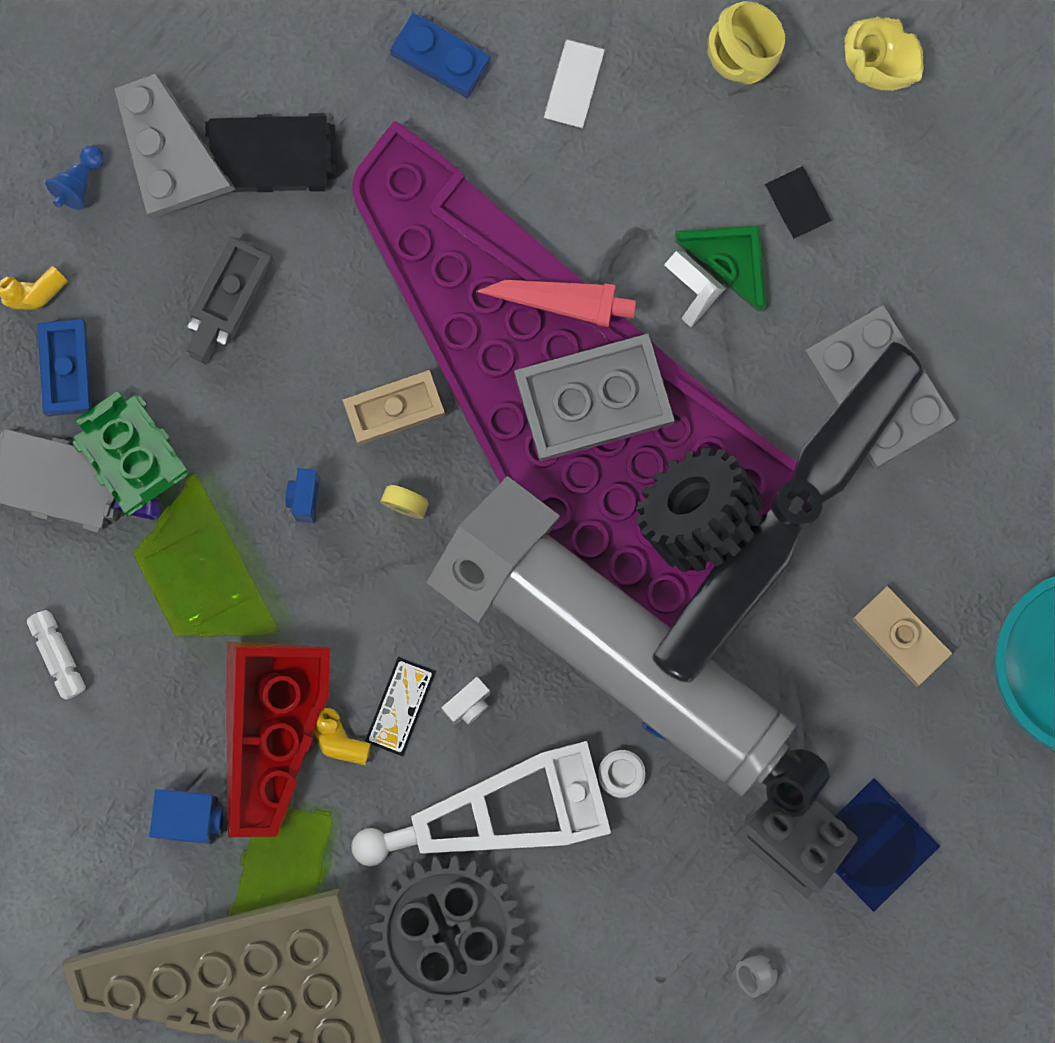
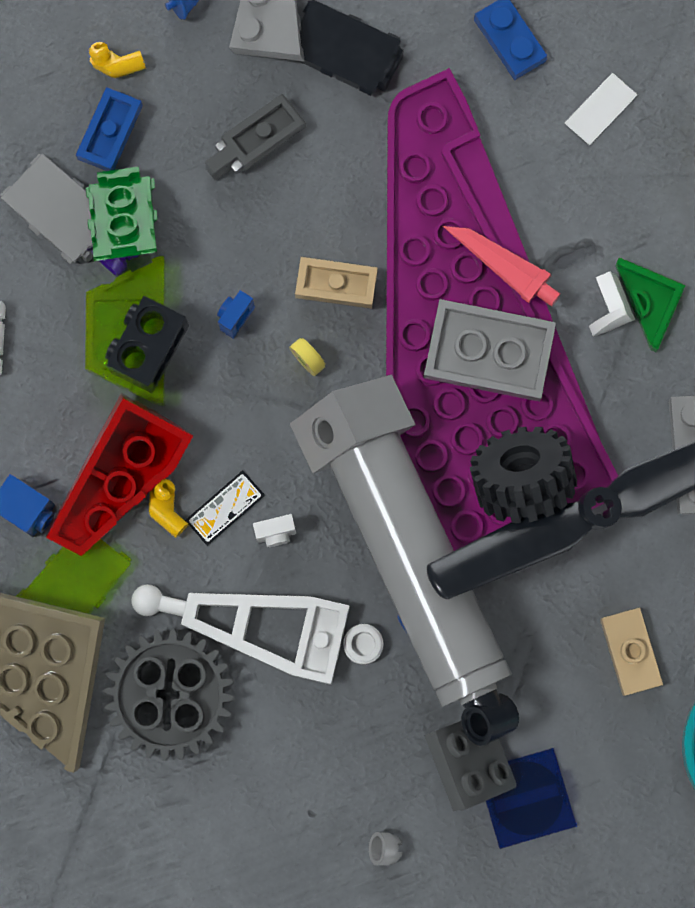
camera: 30 degrees right, 0 degrees up
(241, 575) = (156, 347): none -> black brick

